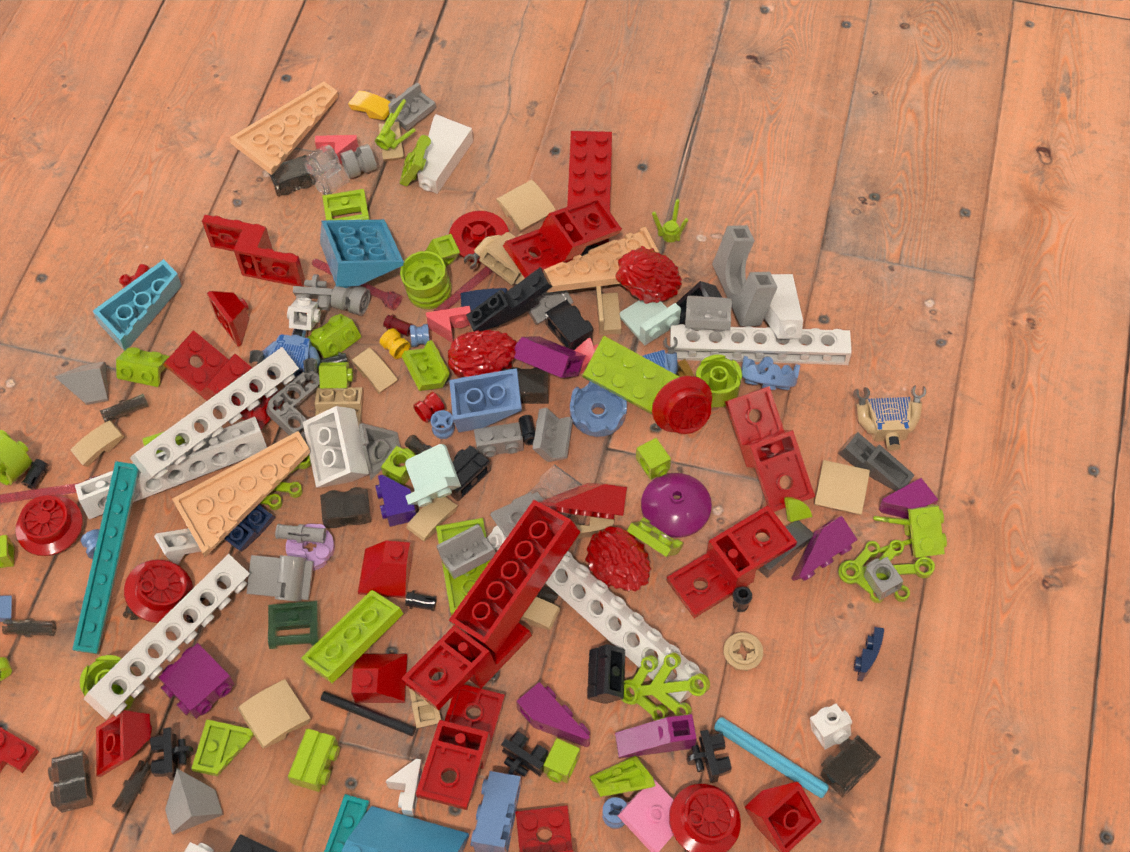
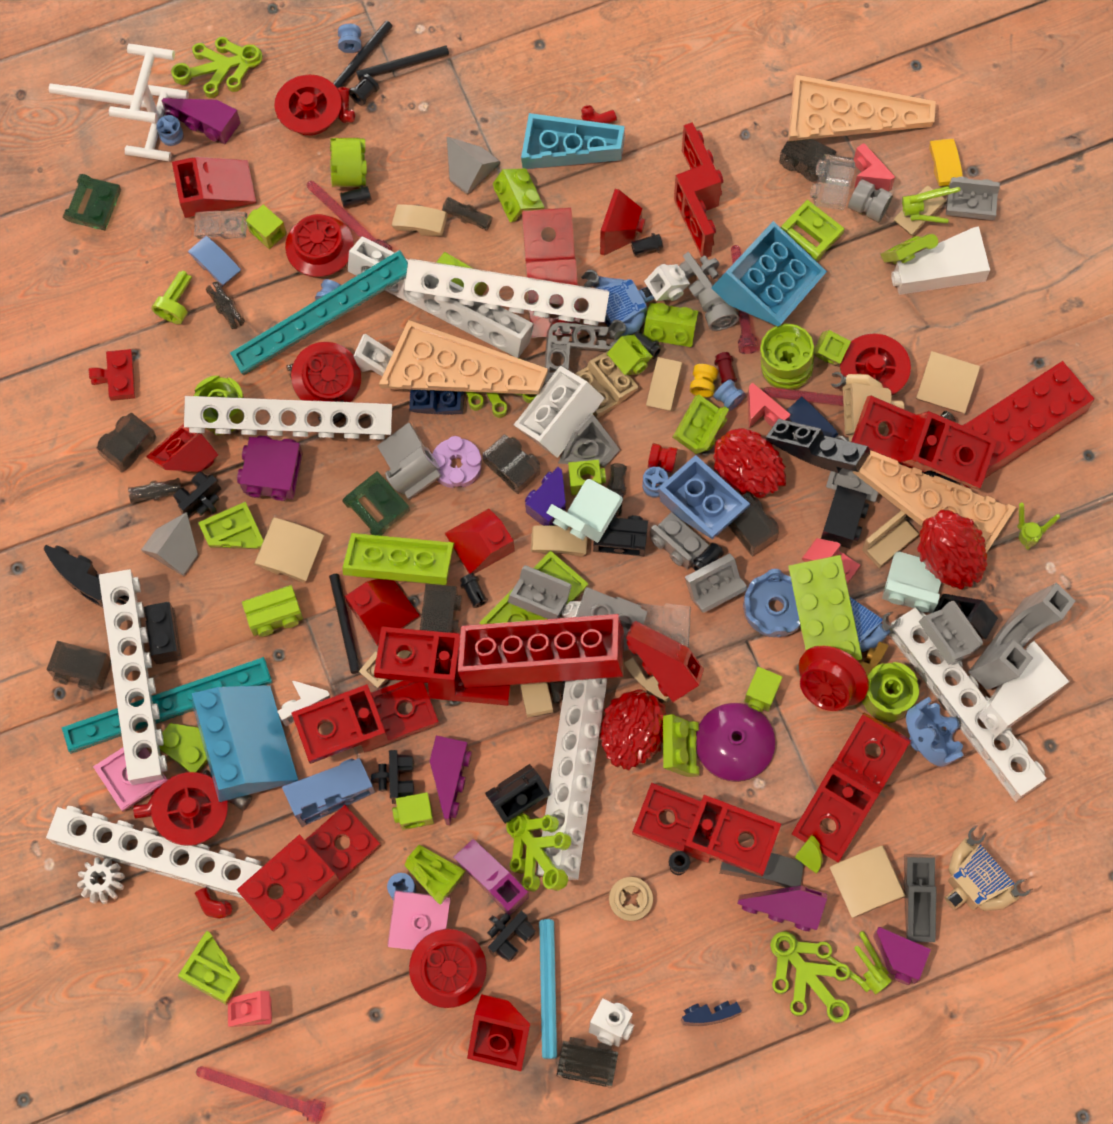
camera: 55 degrees right, 10 degrees up
(263, 307) = (647, 244): none -> black pin
(300, 533) = (457, 446): light grey pin -> none
(416, 633) = (440, 608): none -> clear smoke brick
(549, 356) = (791, 523): magenta brick -> none
(883, 588) = (791, 990): light grey brick -> none
(927, 531) = (874, 989): lime bracket -> none

